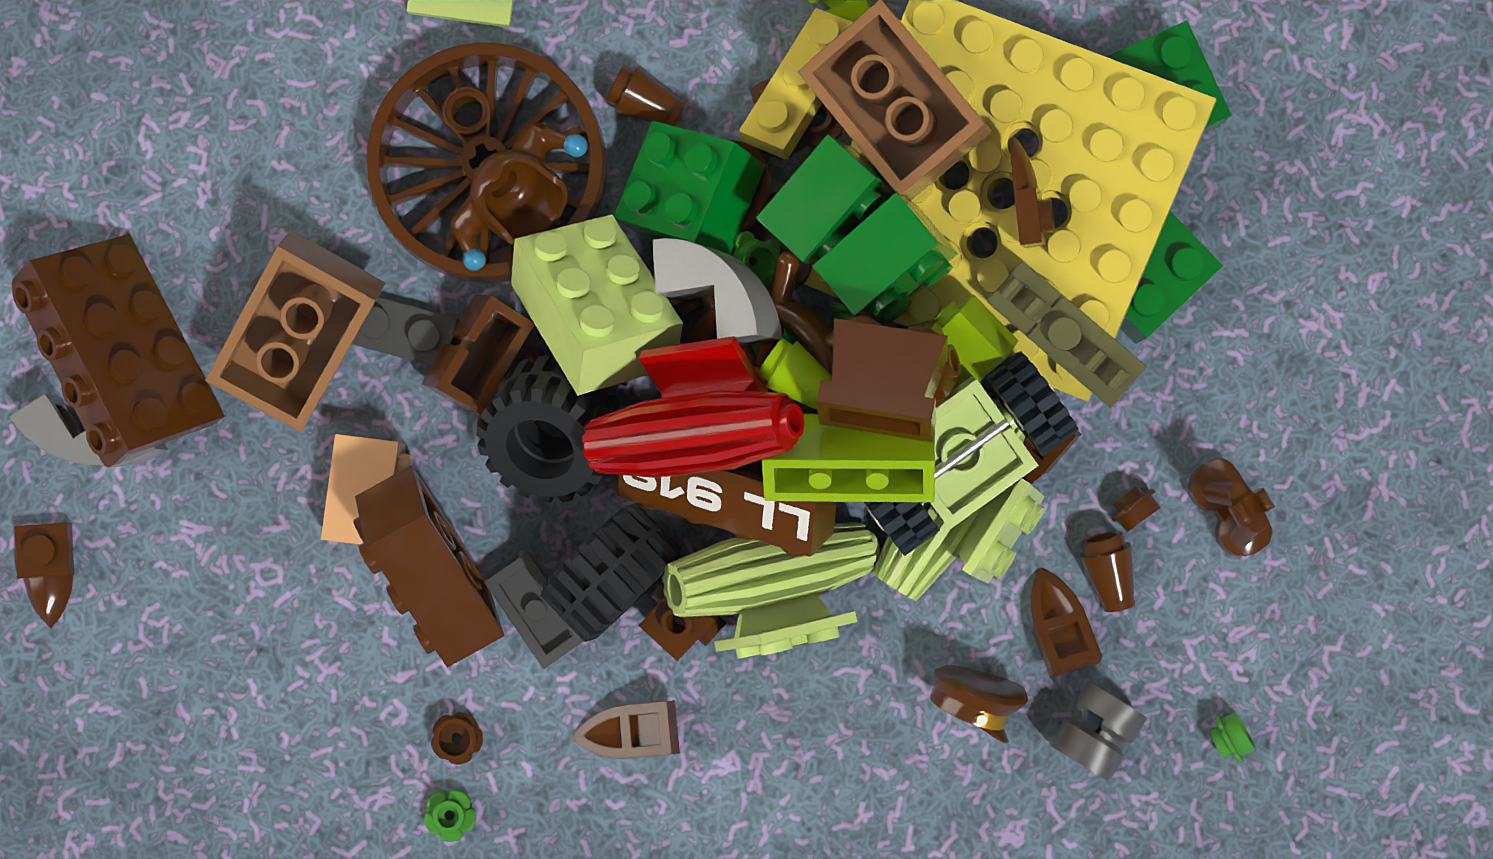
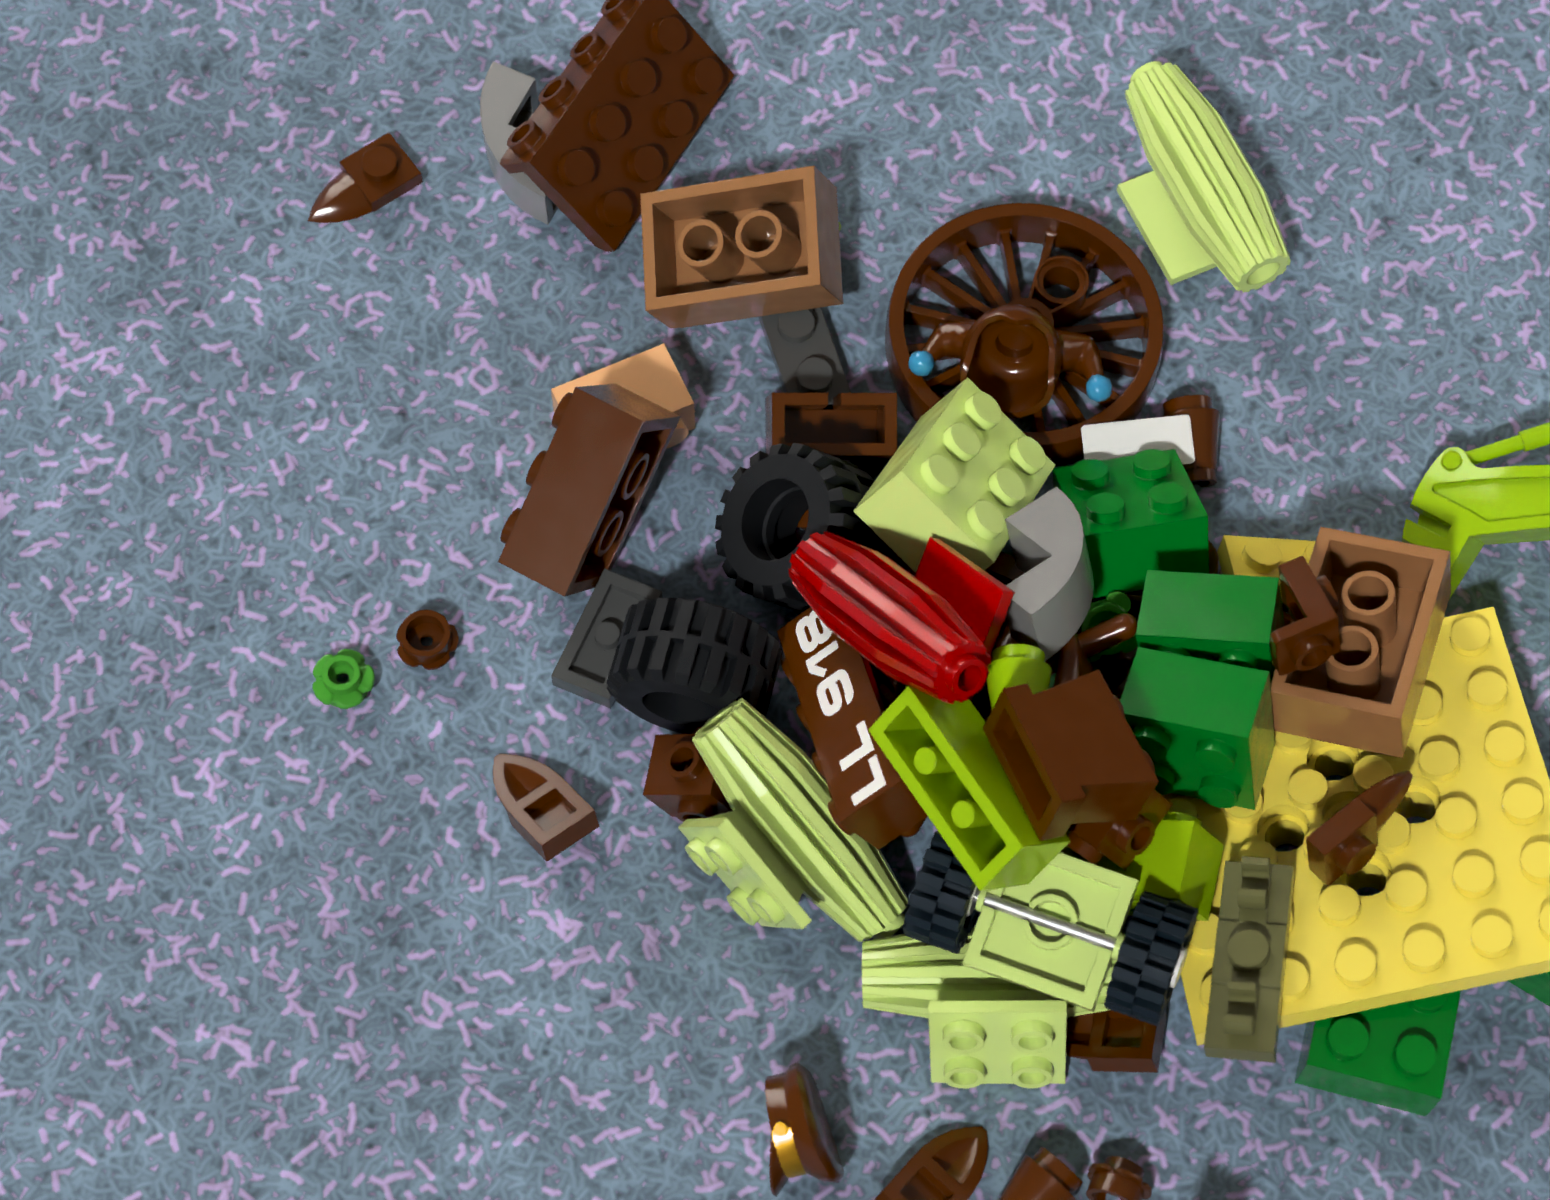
camera: 60 degrees right, 20 degrees down
(627, 140) = (1129, 437): none -> white sticker
(864, 126) = (1315, 626): none -> reddish brown bracket

